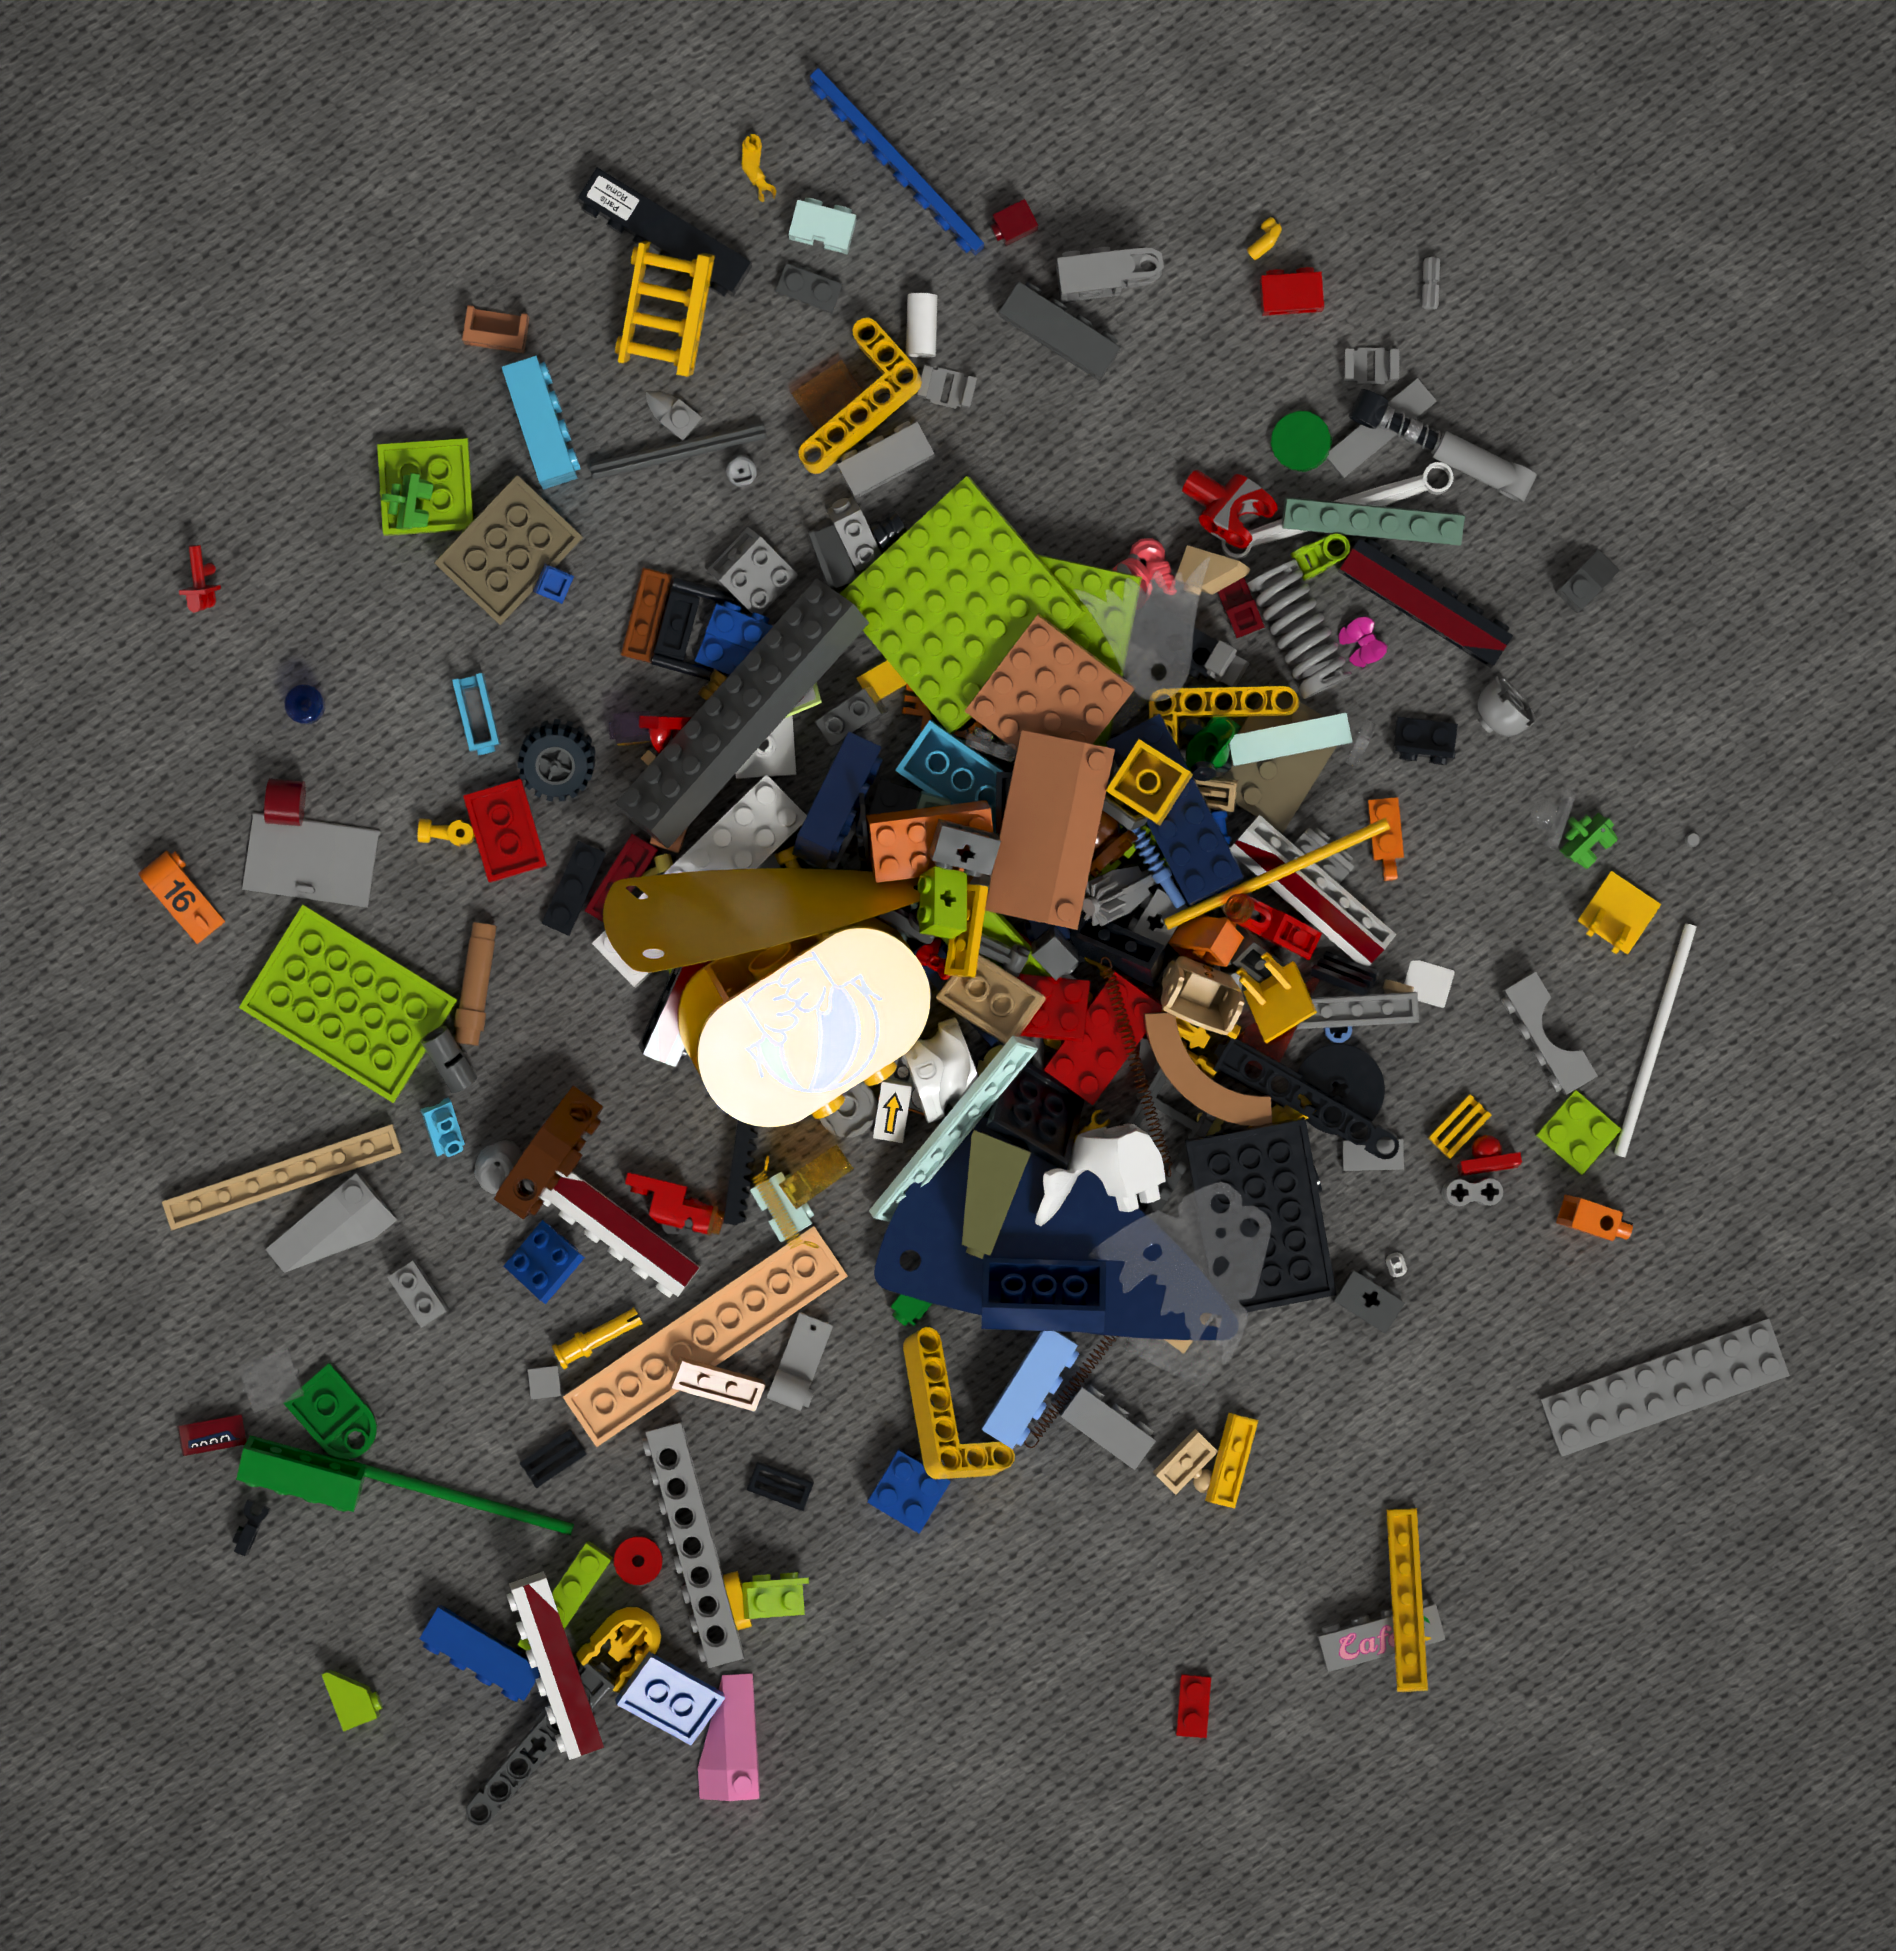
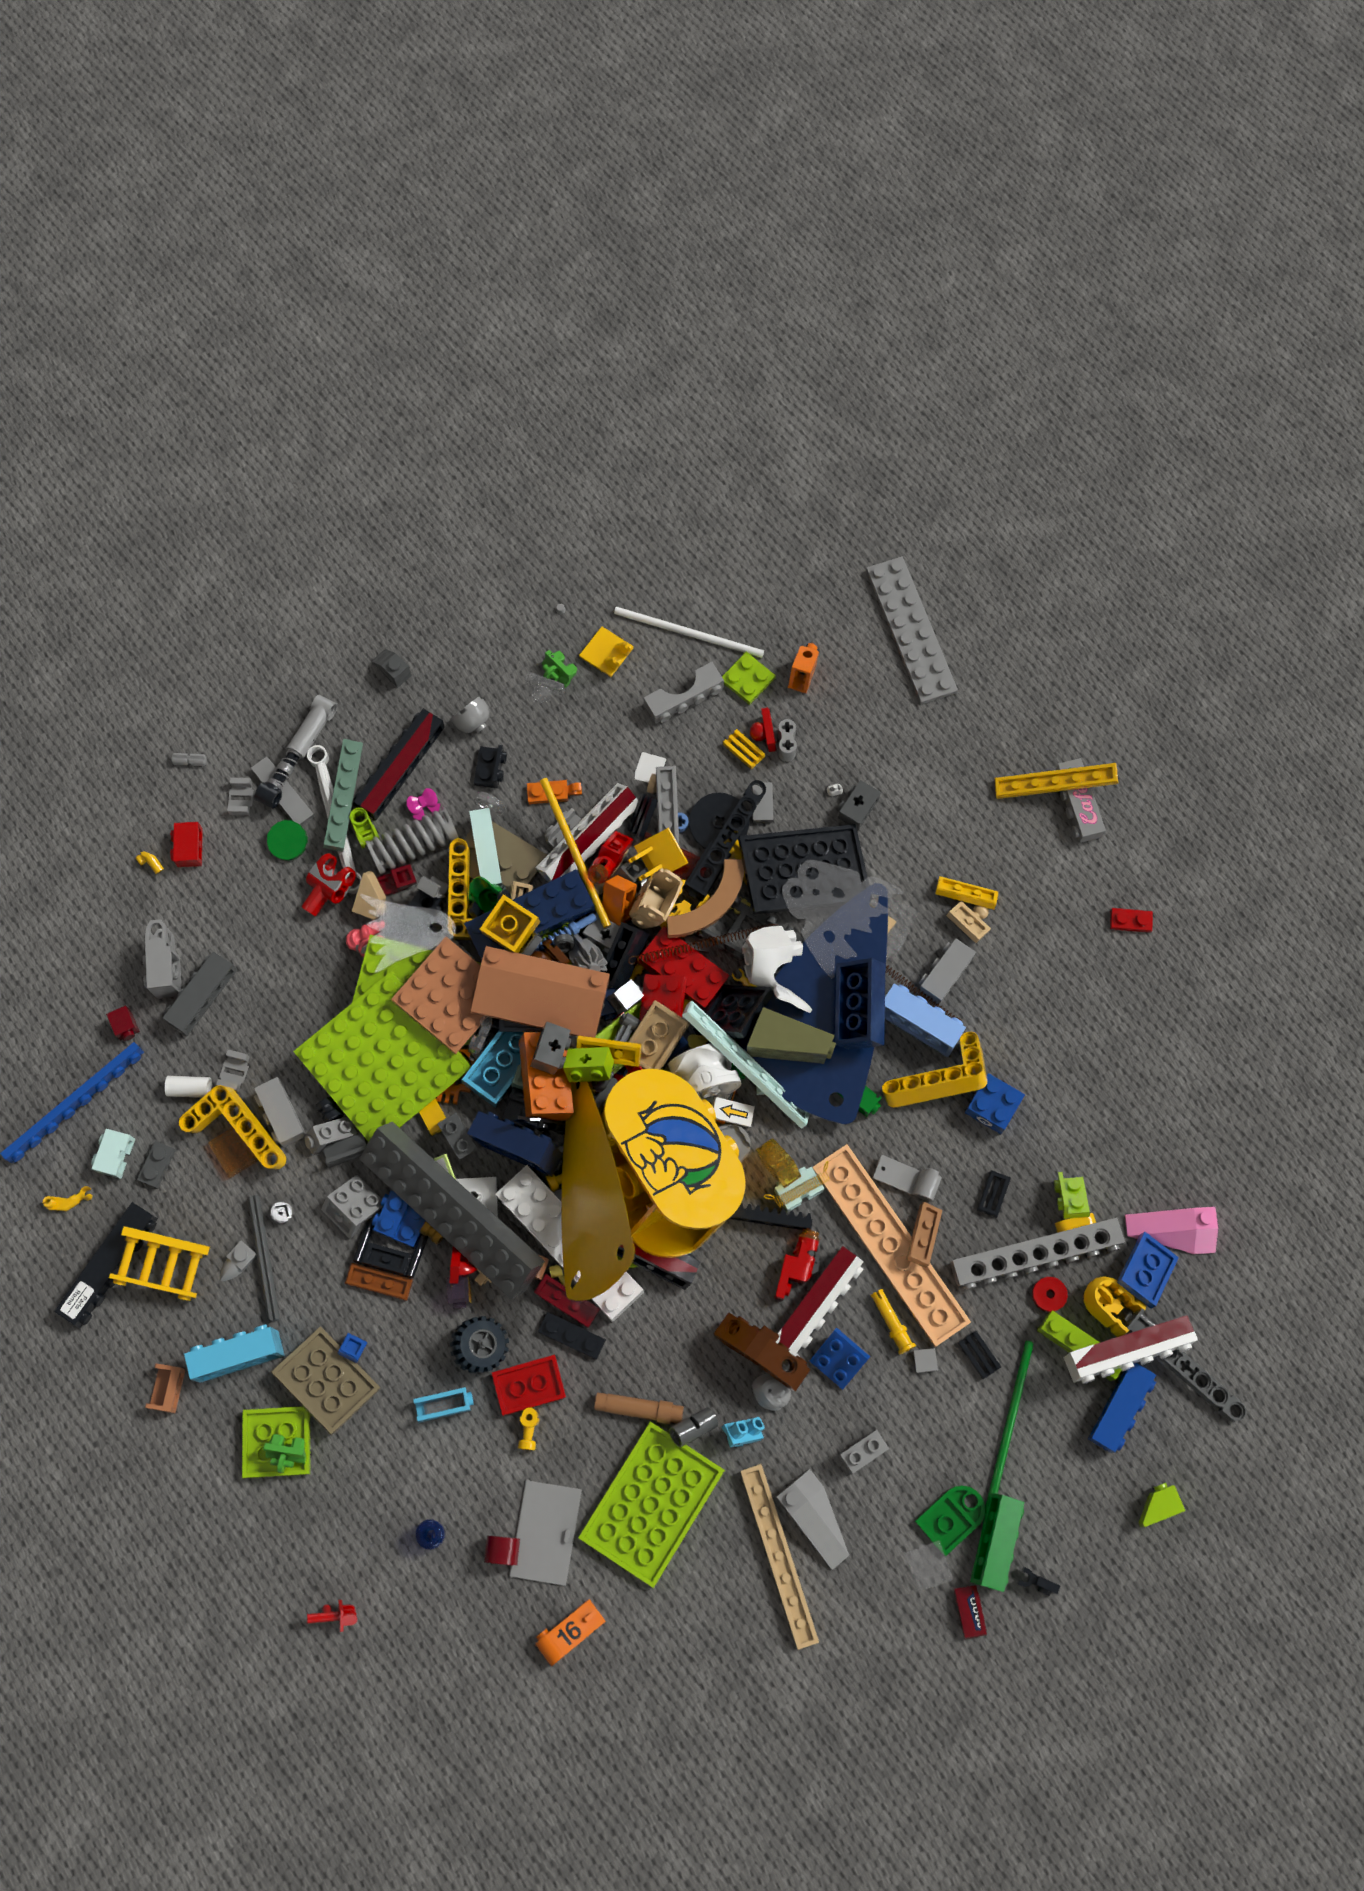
camera: 85 degrees left, 15 degrees down
(1135, 861) = (564, 942): none -> dark grey tile

